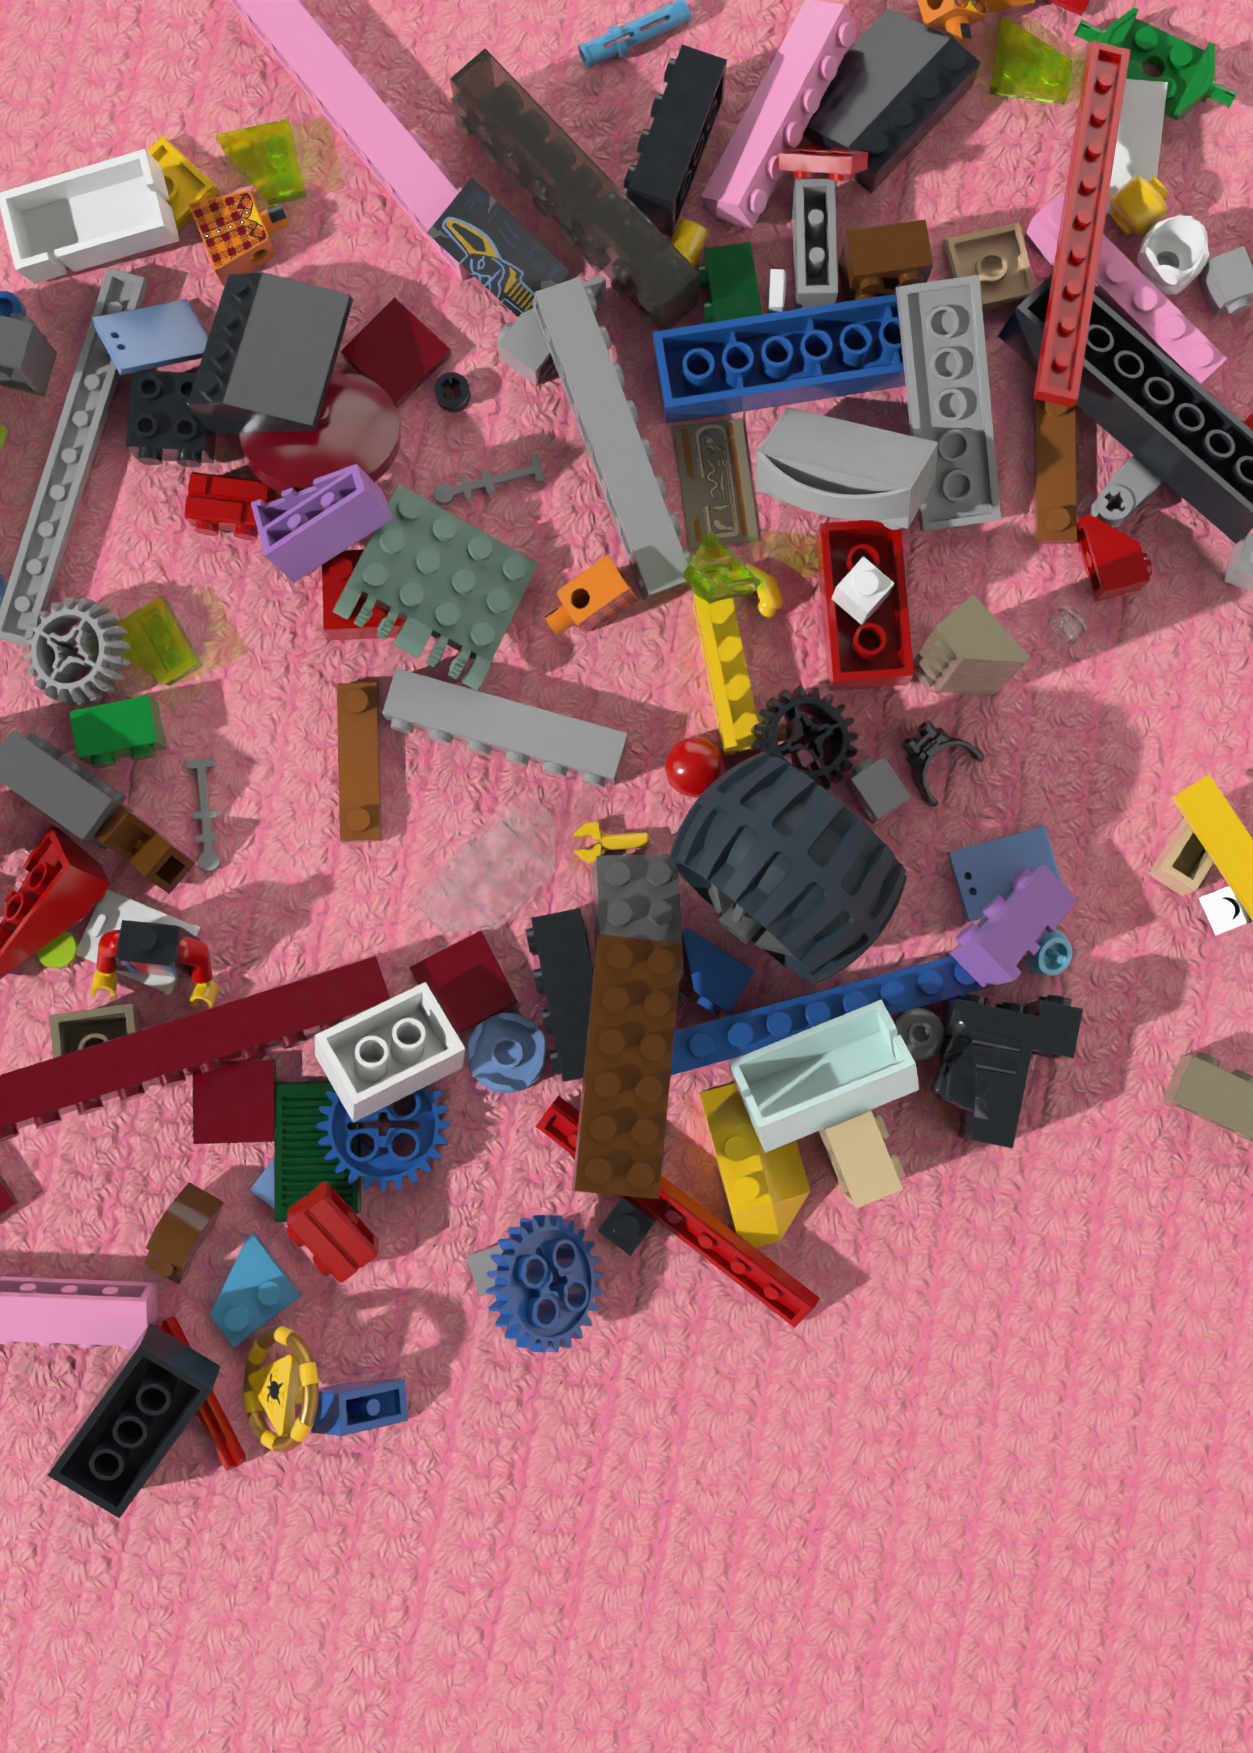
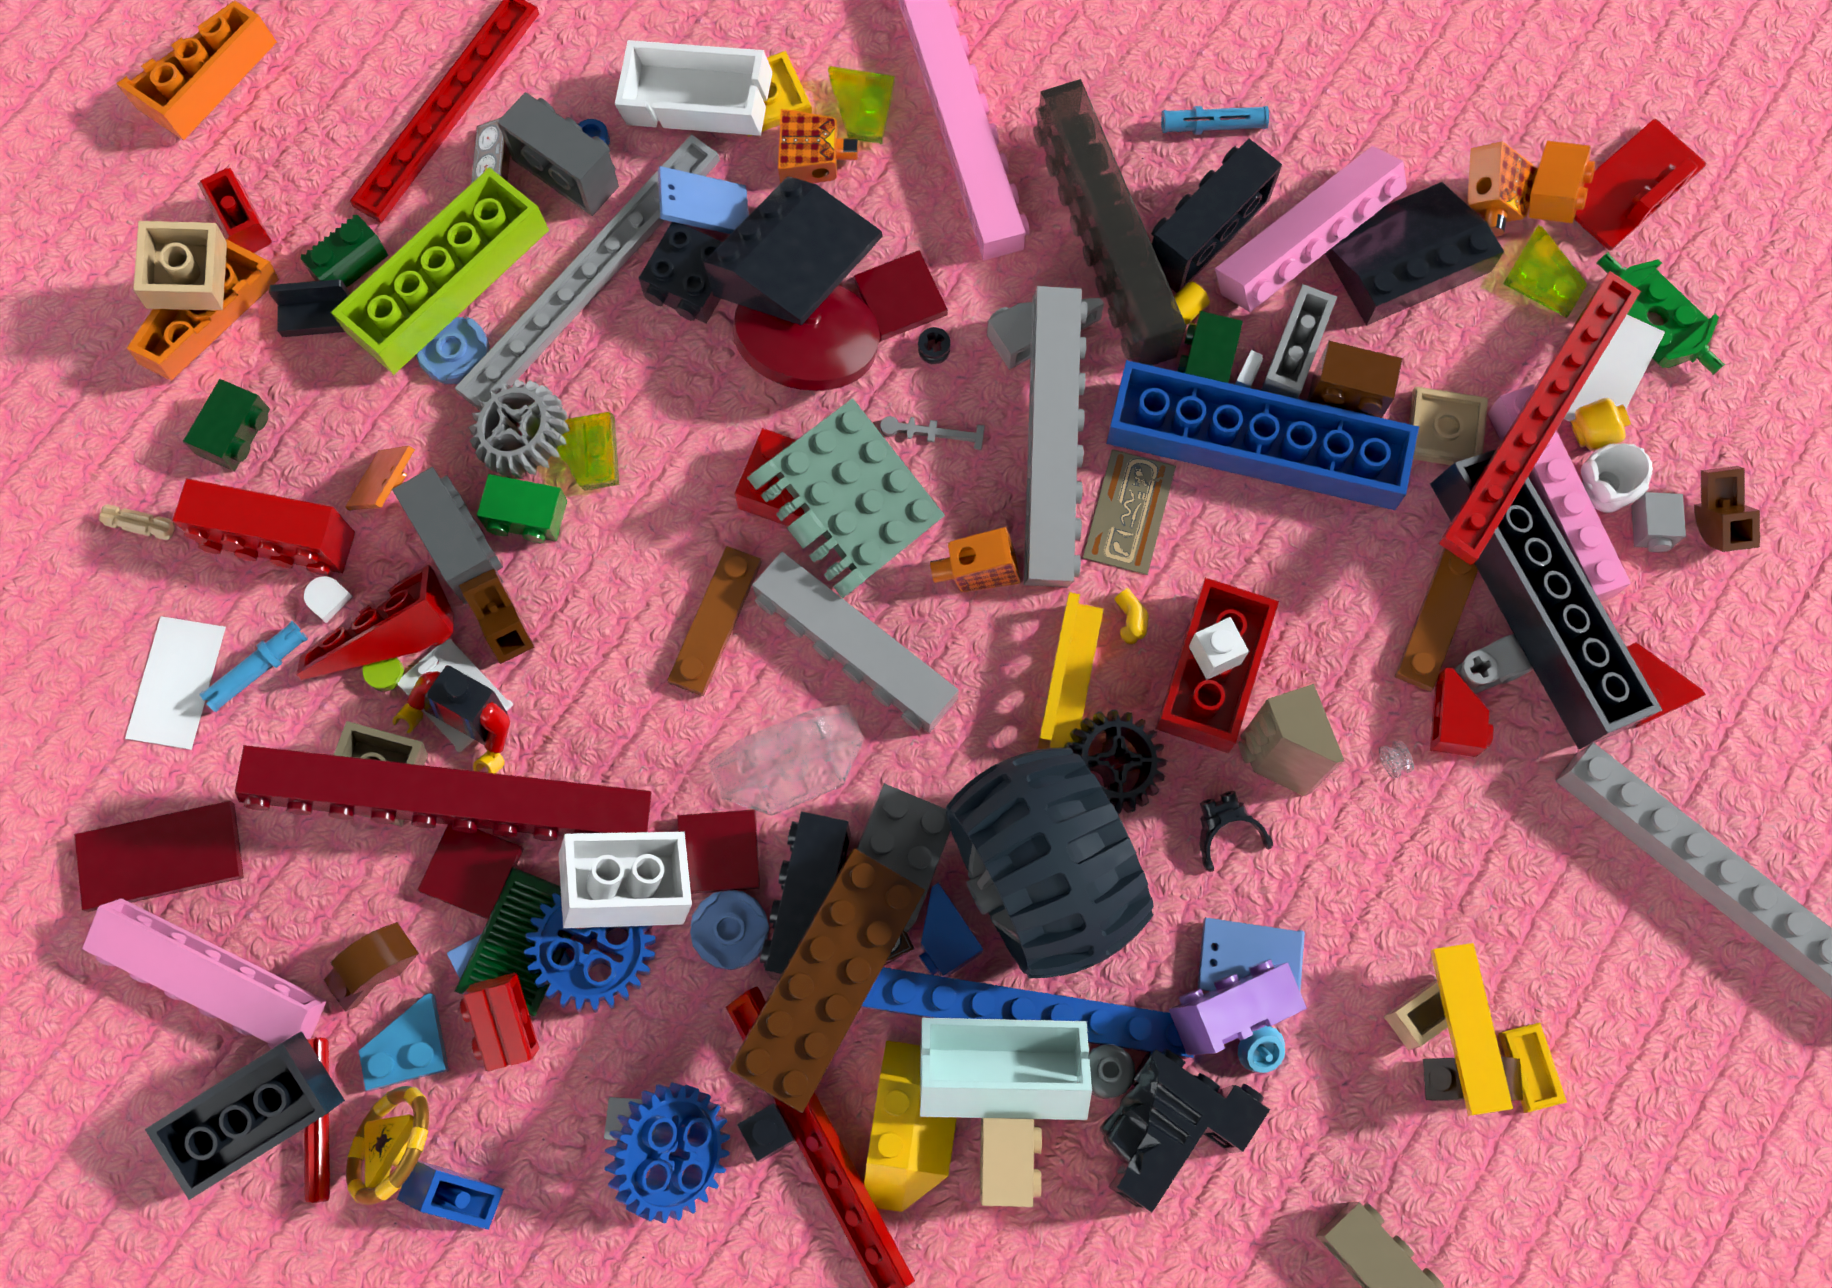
camera: 20 degrees right, 10 degrees down
(208, 859) = (548, 650): light grey piece -> none
(225, 504) = (704, 362): red brick -> none
(319, 521) = (771, 400): medium lavender wedge -> none
(496, 248) = (1021, 241): black sticker -> none
(608, 841) = (902, 779): yellow bar -> none
(694, 765) = (1005, 739): red hair -> none
(717, 572) = (1098, 584): clear neon green wing -> none
(810, 159) = (1344, 284): wing -> none
(846, 468) = (1248, 540): light grey piece -> none
(877, 788) = (1163, 833): light grey brick -> none
(950, 398) = (1362, 521): light grey plate -> none

